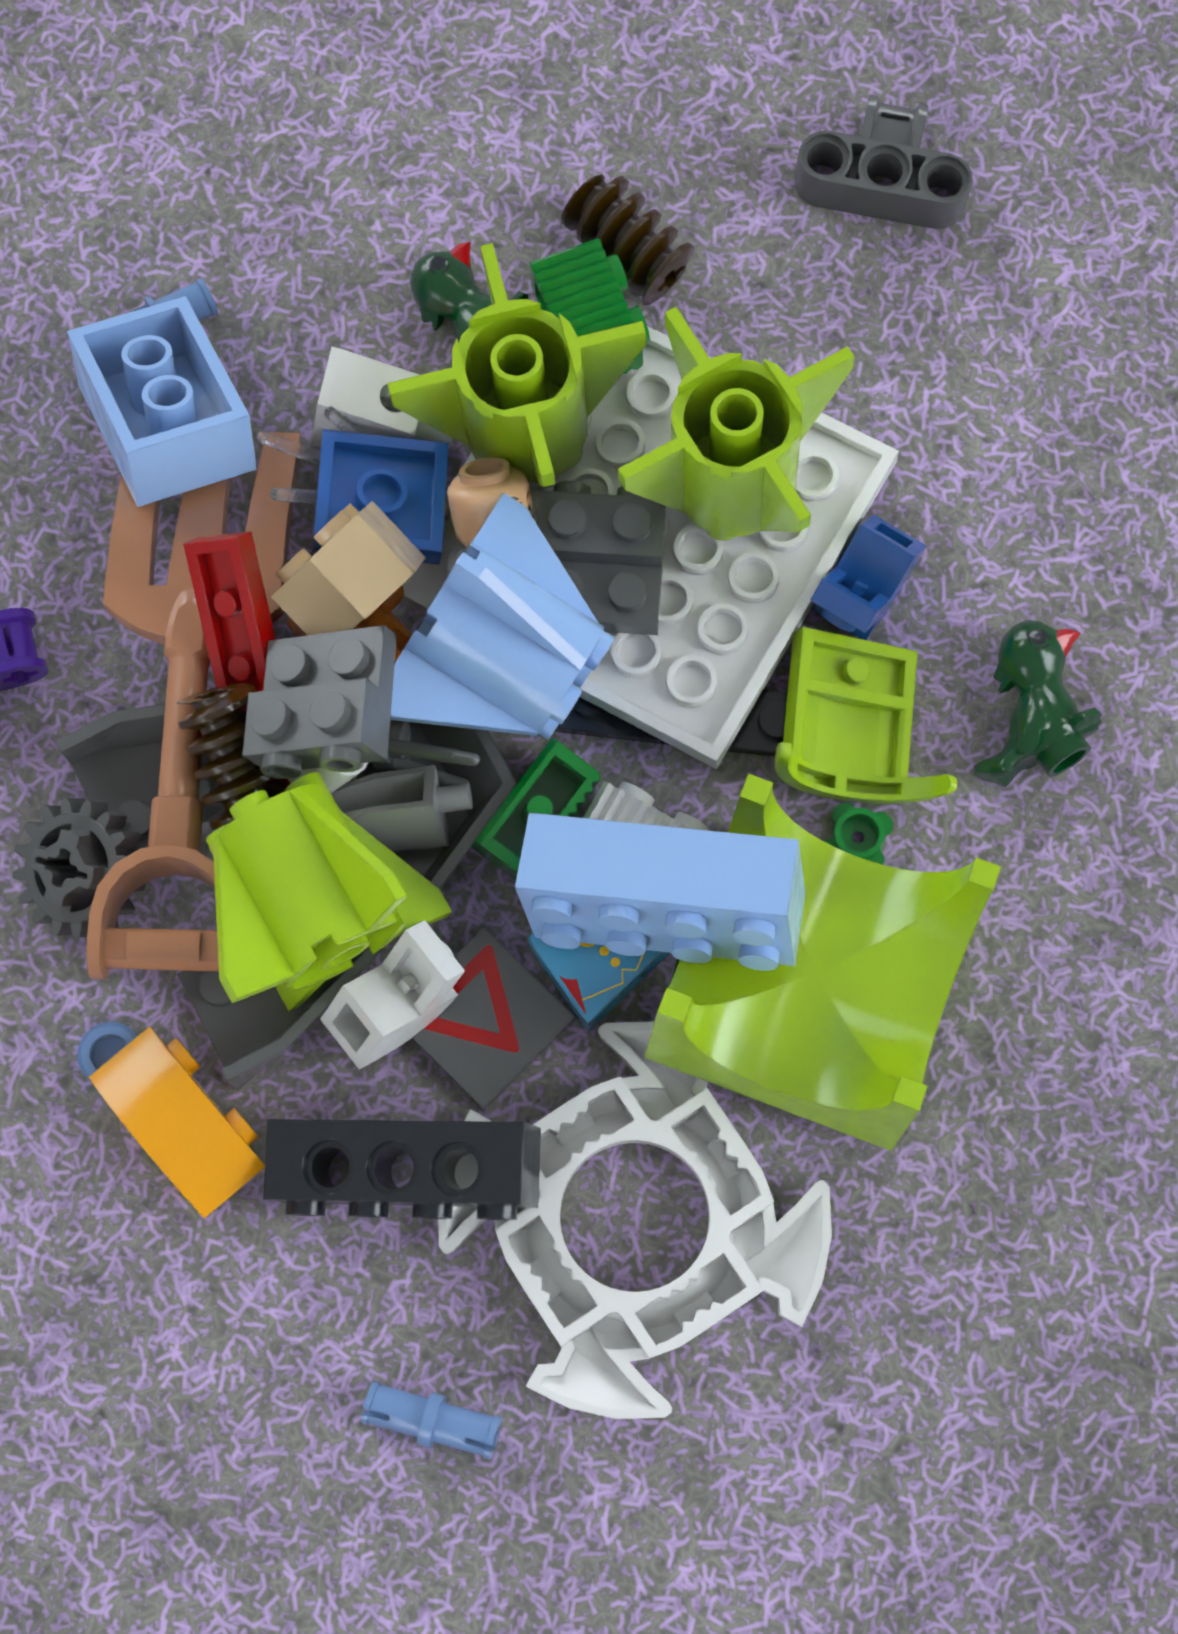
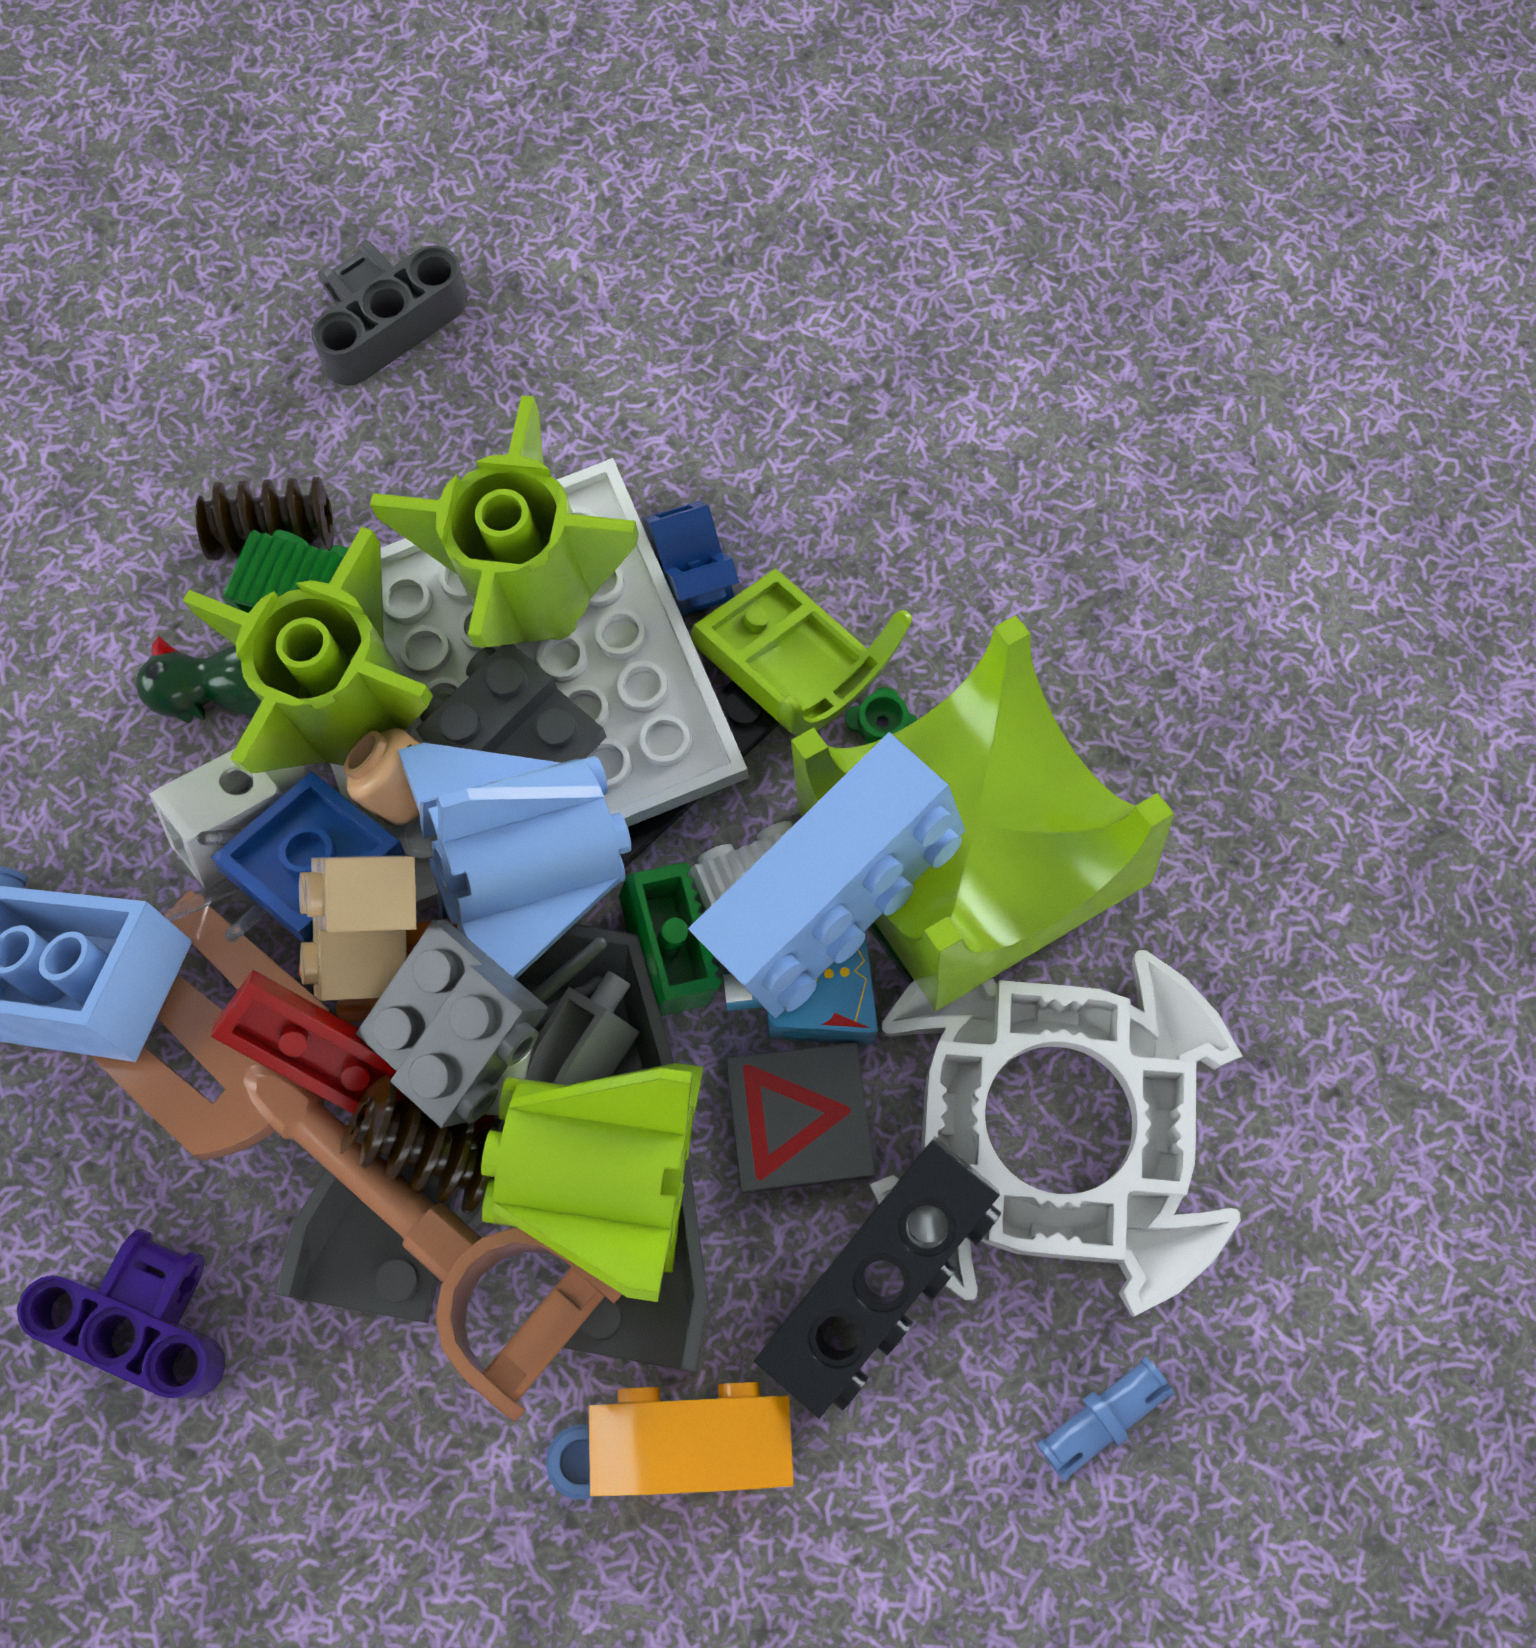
camera: 55 degrees left, 5 degrees down
(70, 859) = (404, 1390): dark grey gear -> none
(395, 998) = (734, 1170): white brick -> none
(1046, 719) = (903, 518): dark green animal -> none

